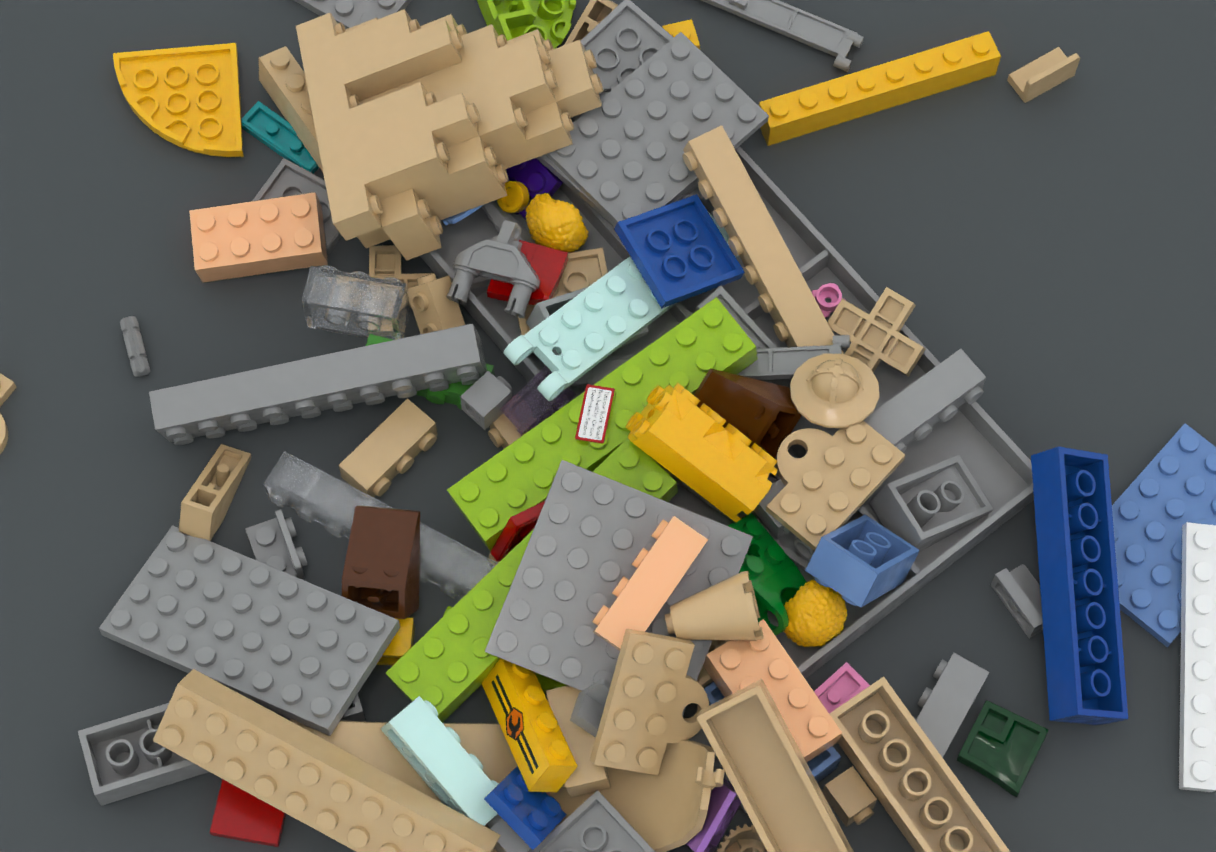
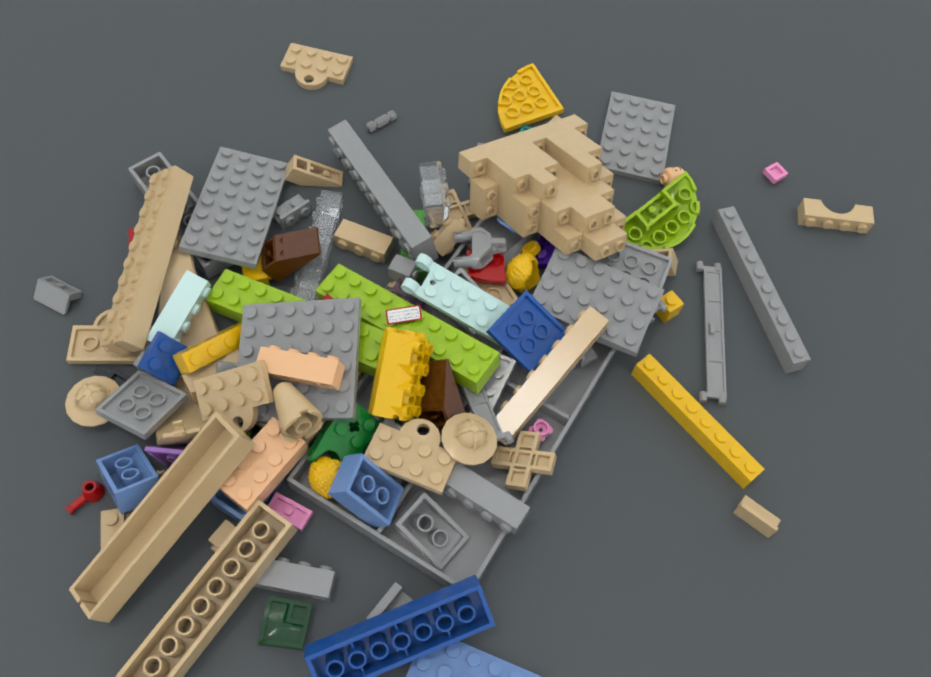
camera: 65 degrees right, 5 degrees down
(258, 237) = (449, 138): light nougat brick -> none

